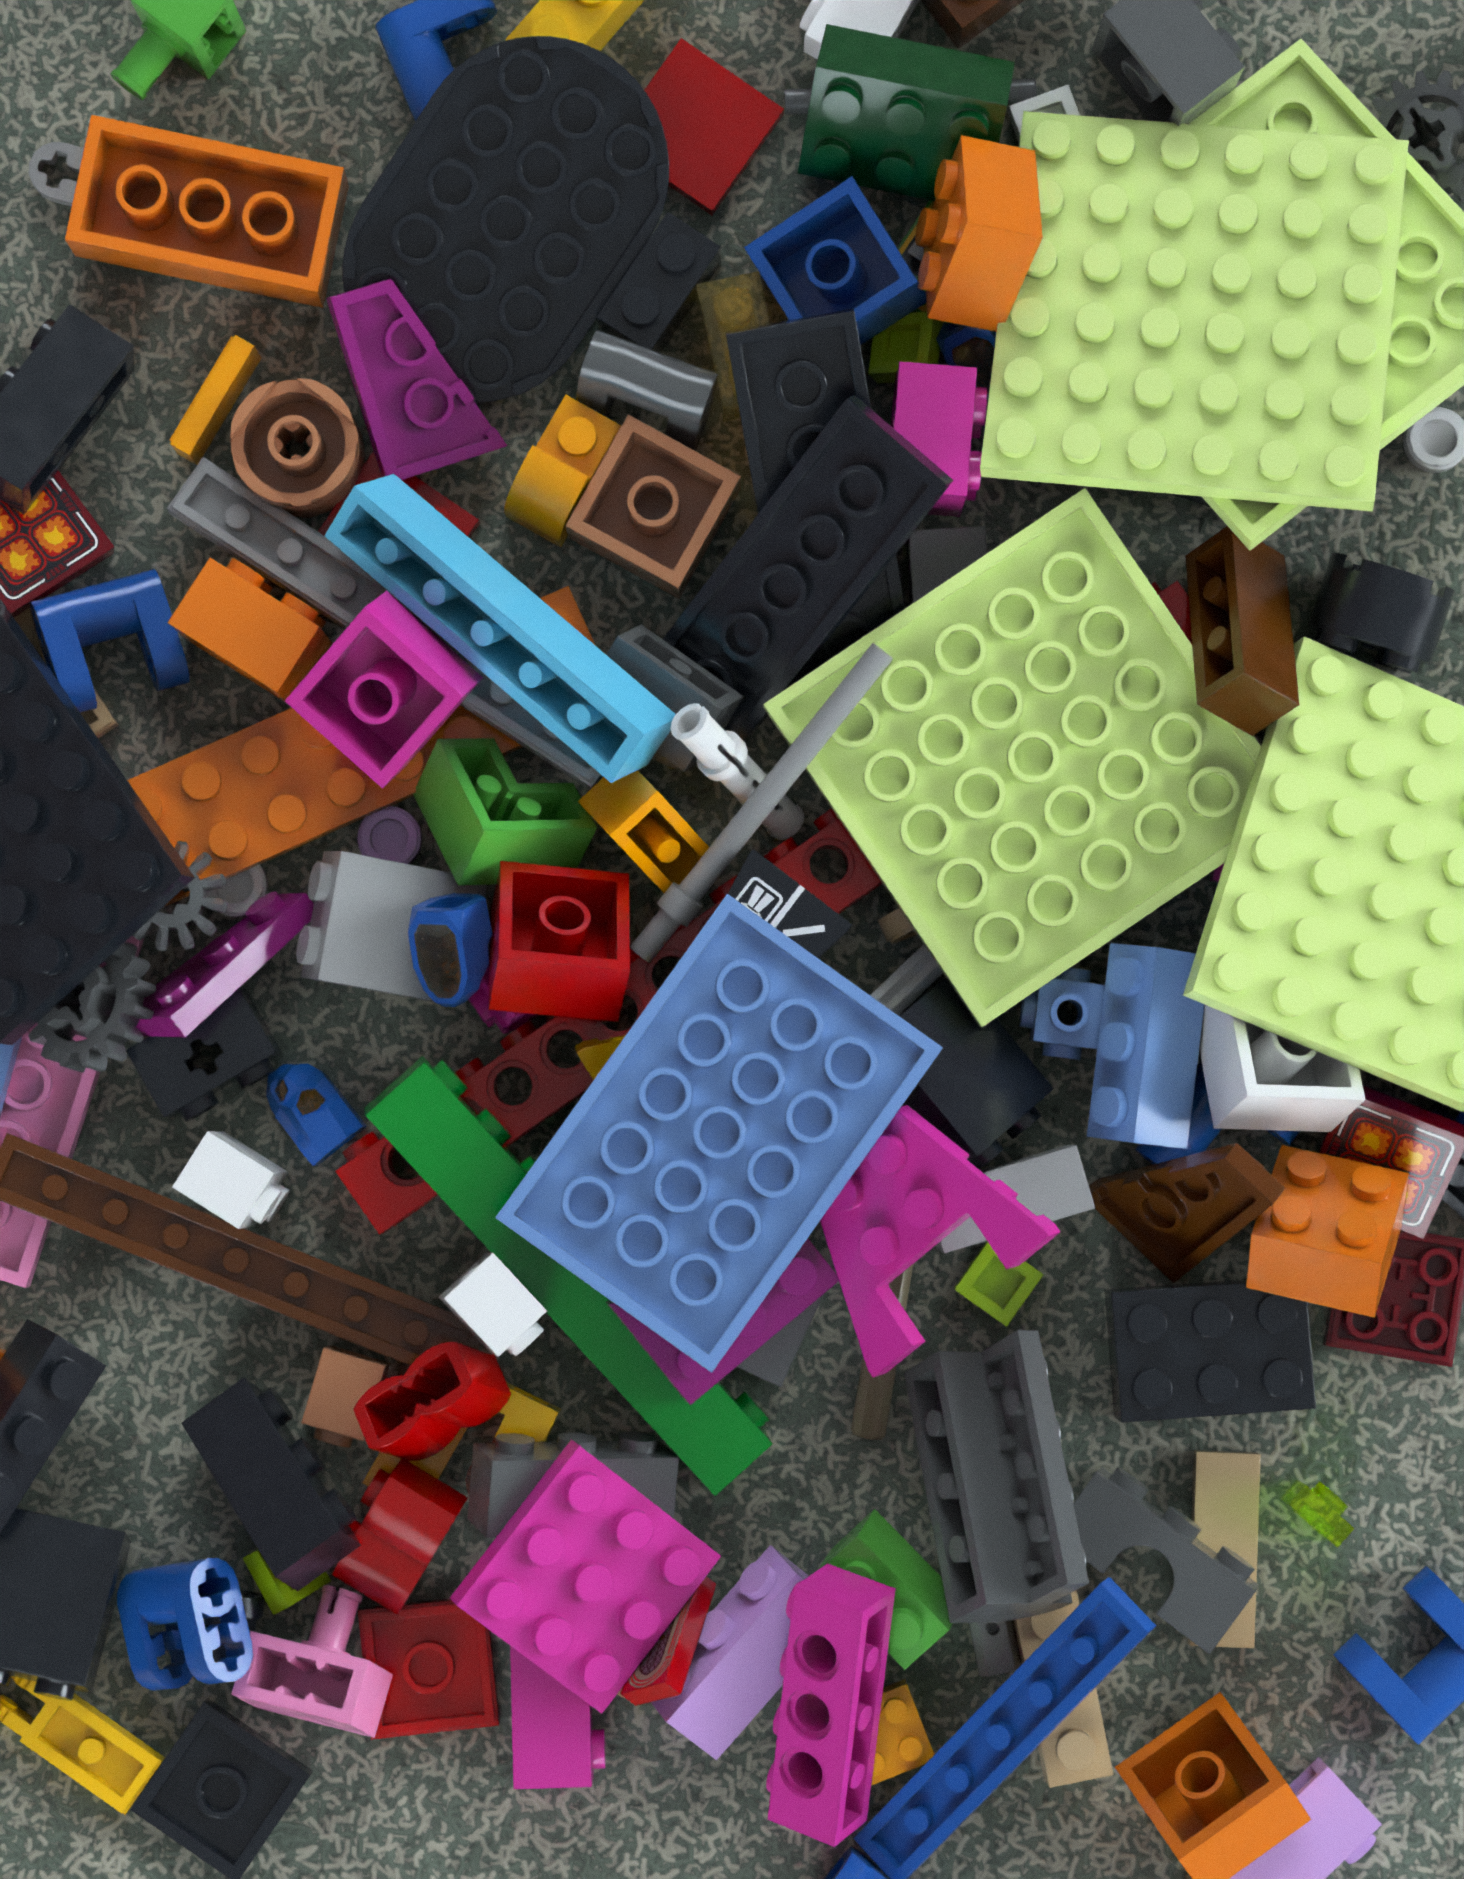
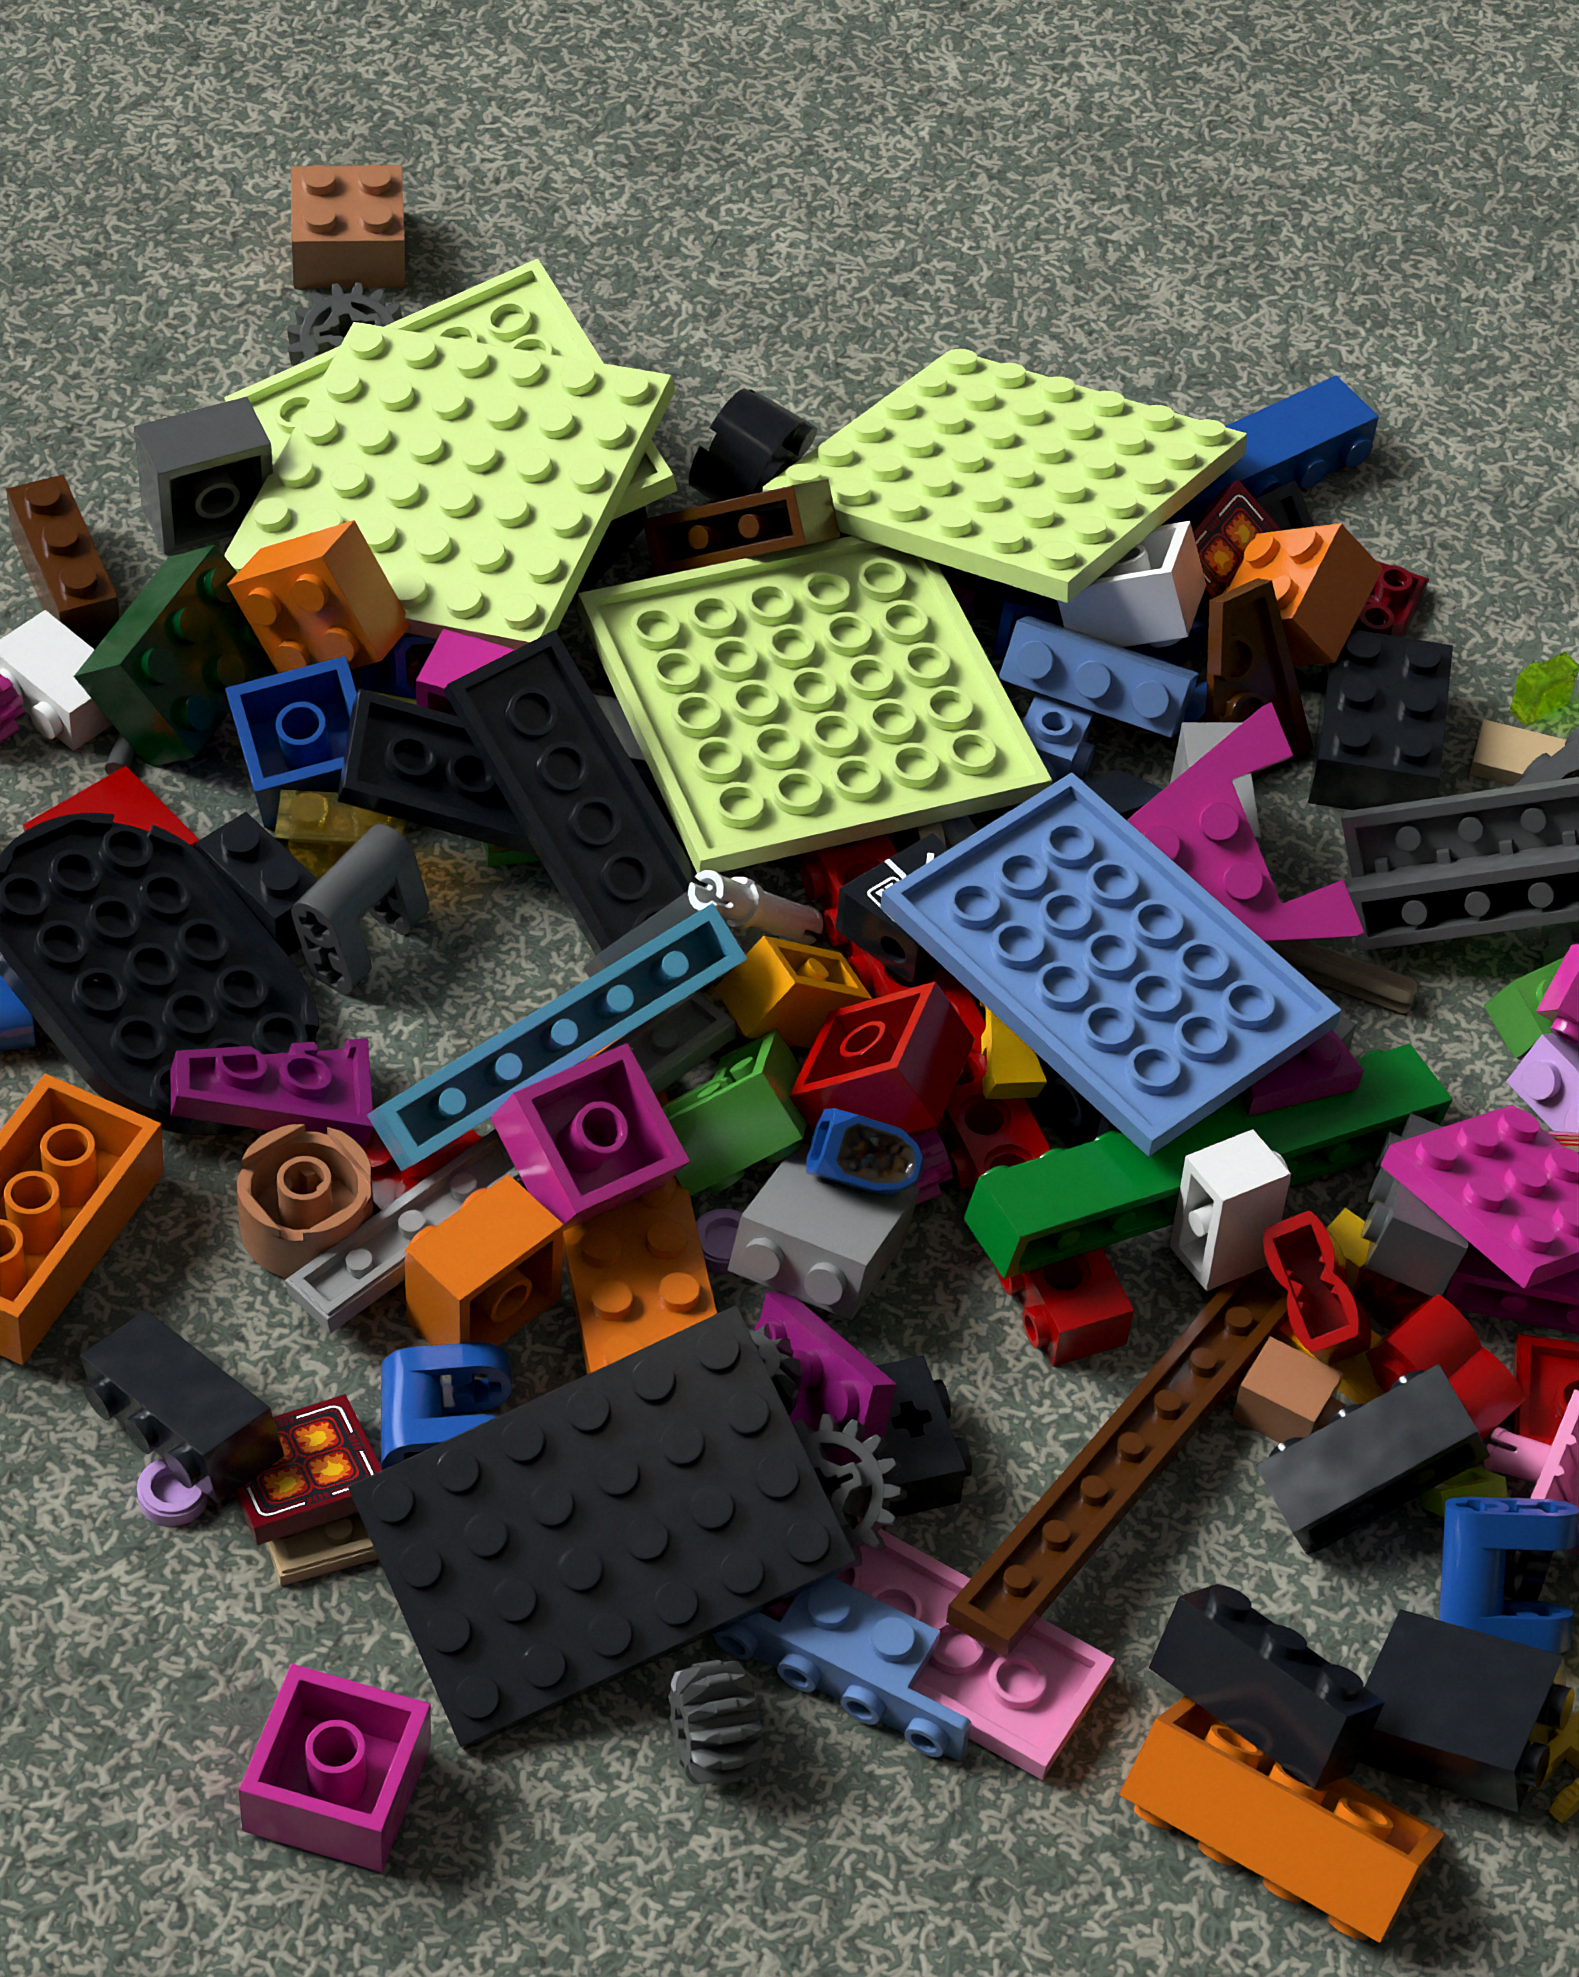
camera: 80 degrees left, 35 degrees down
(215, 399) = (226, 1271): light orange tile -> none
(233, 1181) = (1046, 1419): white brick -> none
(312, 1110) = (993, 1361): blue rock -> none
(559, 469) = (423, 997): light orange brick -> none
(653, 506) = (472, 933): nougat brick -> none
(682, 901) = (867, 975): light grey bar -> none
(995, 1288) = (1292, 862): lime plate -> none

